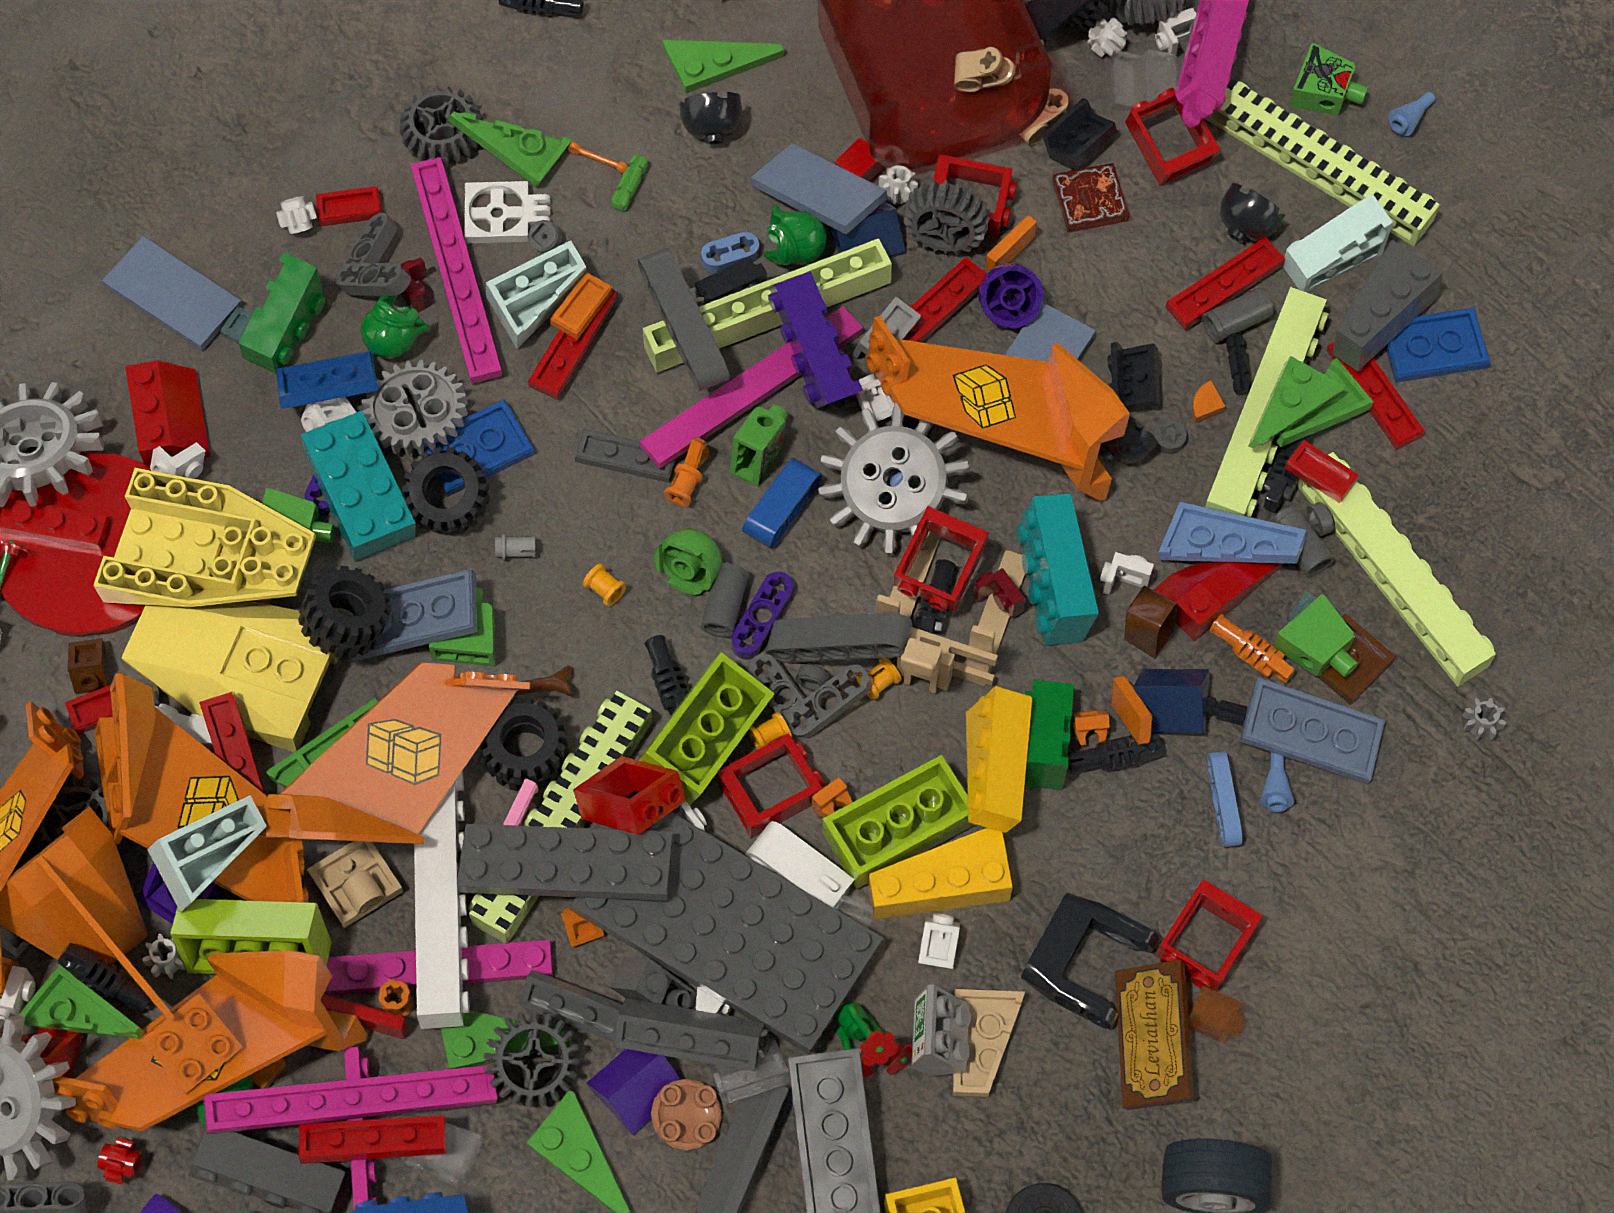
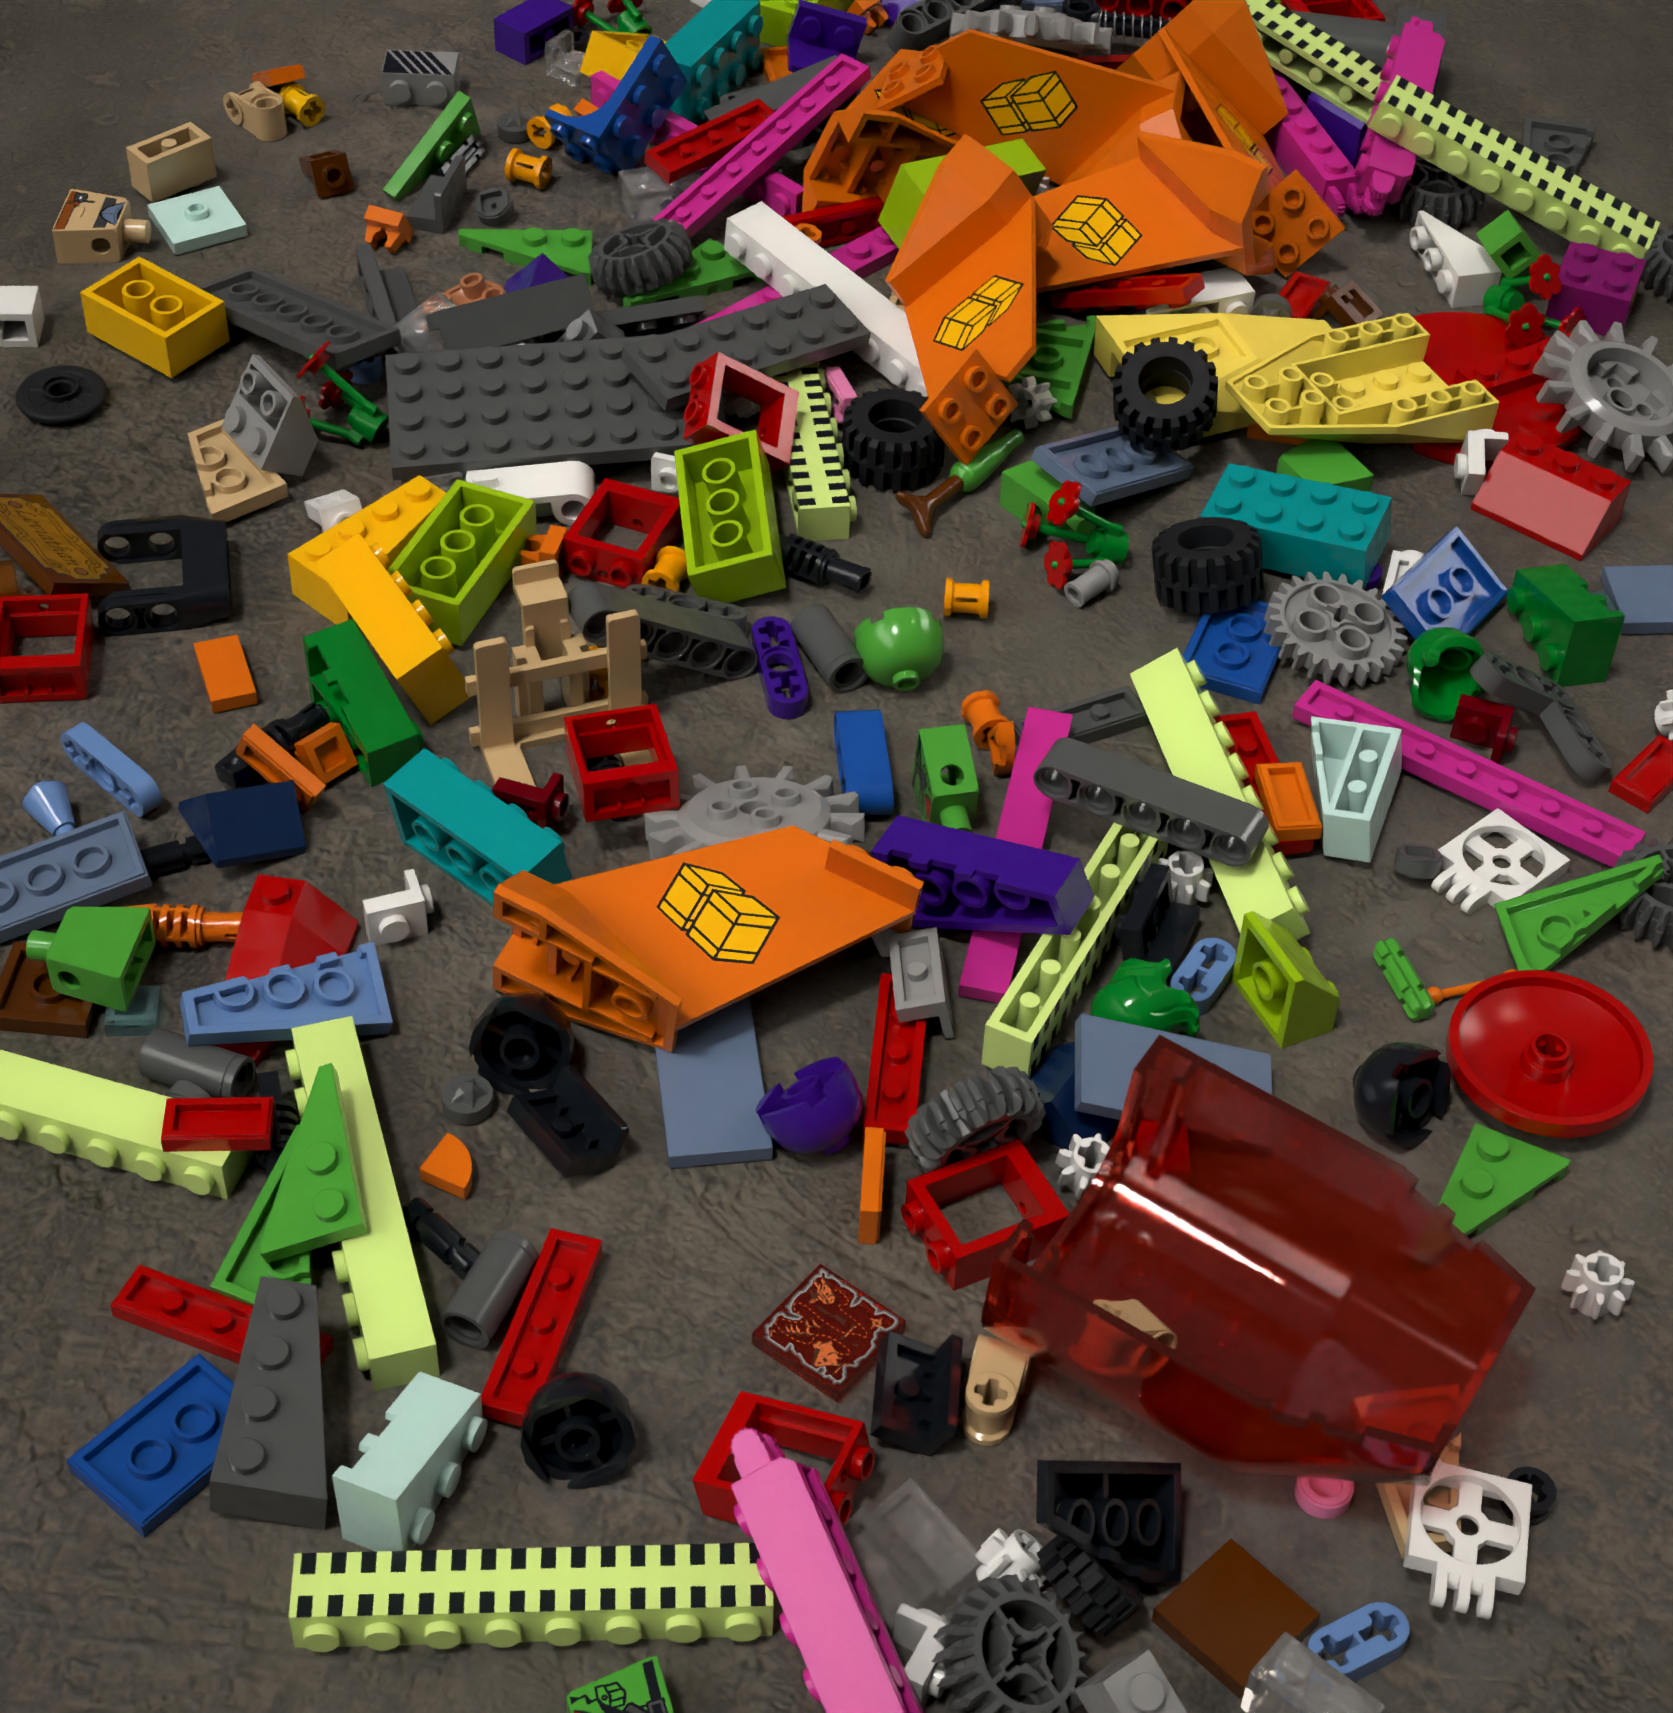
camera: 140 degrees right, 20 degrees down
(203, 849) = (1062, 172): light aqua wedge -> none
(501, 569) = (1105, 543): none -> plant
(608, 345) = (1200, 754): none -> yellowish green brick
(616, 83) = (1549, 1053): none -> red dish
(701, 205) = (1282, 982): none -> lime slope
(1102, 845) = (225, 673): none -> orange tile
(1150, 621) = (326, 851): reddish brown piece -> none

